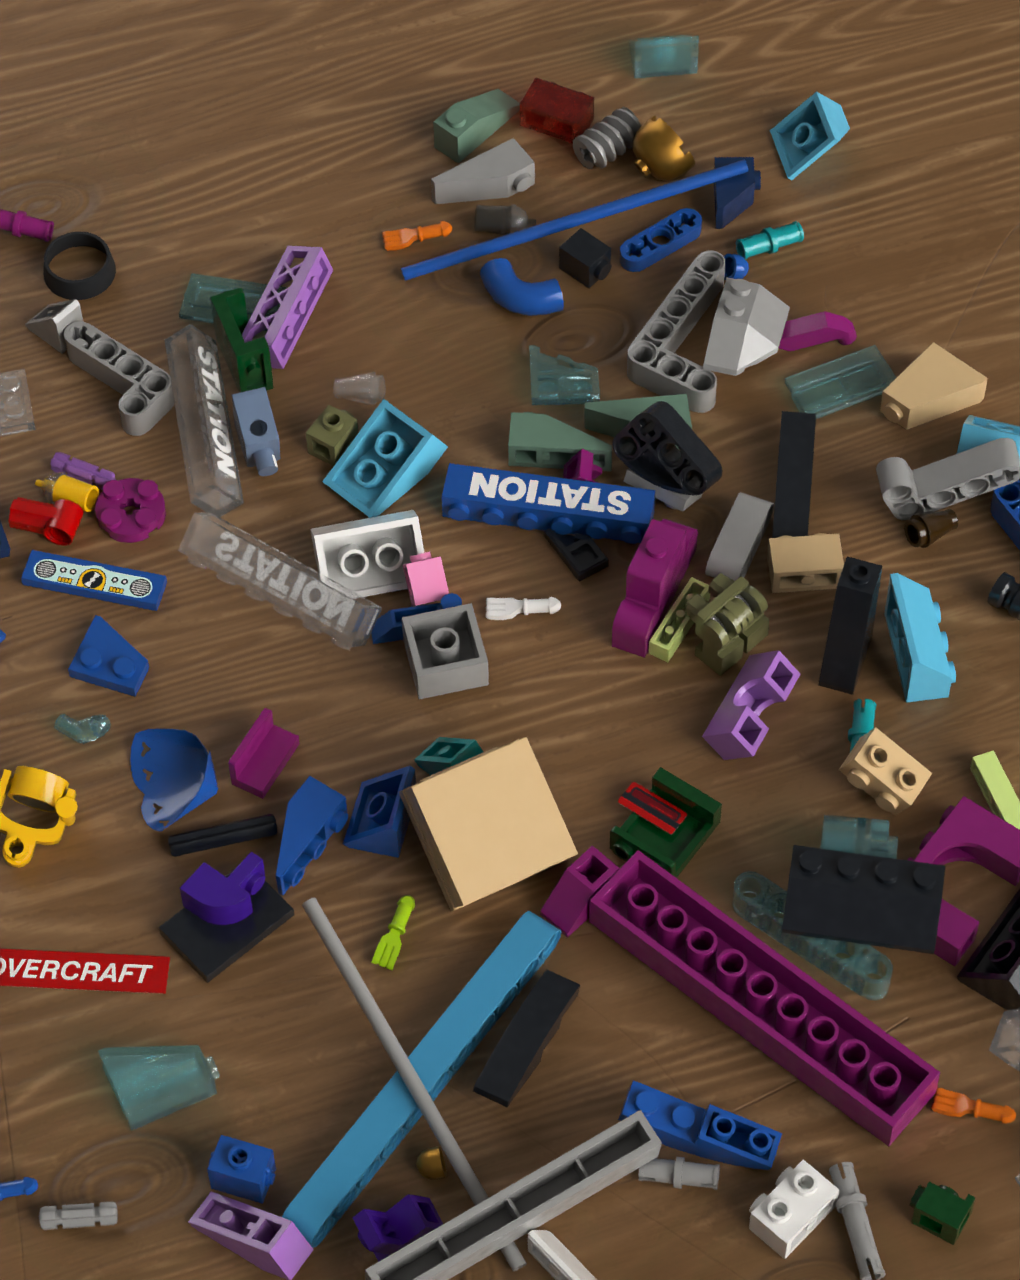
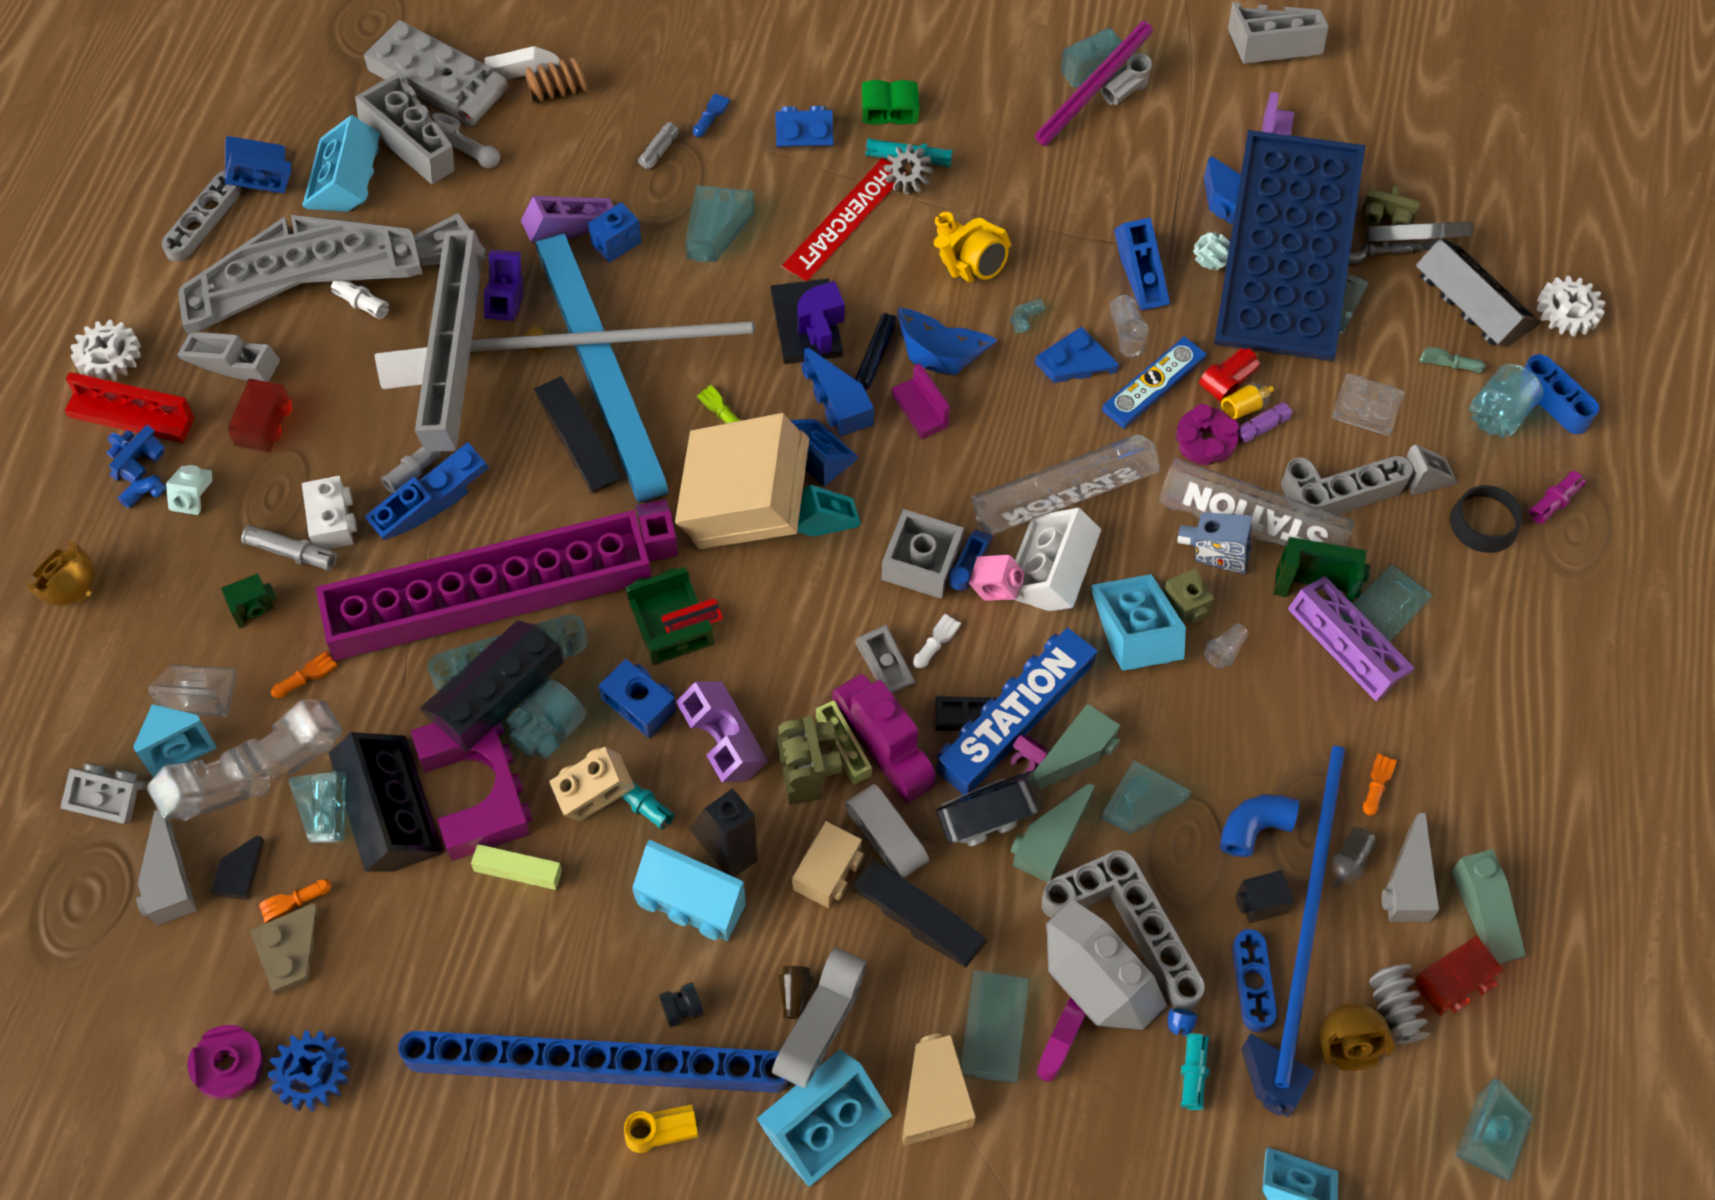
camera: 120 degrees right, 5 degrees up
(40, 626) = (1129, 326): none -> clear piece
(570, 638) = (885, 659): none -> light grey slope
(767, 779) = (645, 714): none -> blue brick

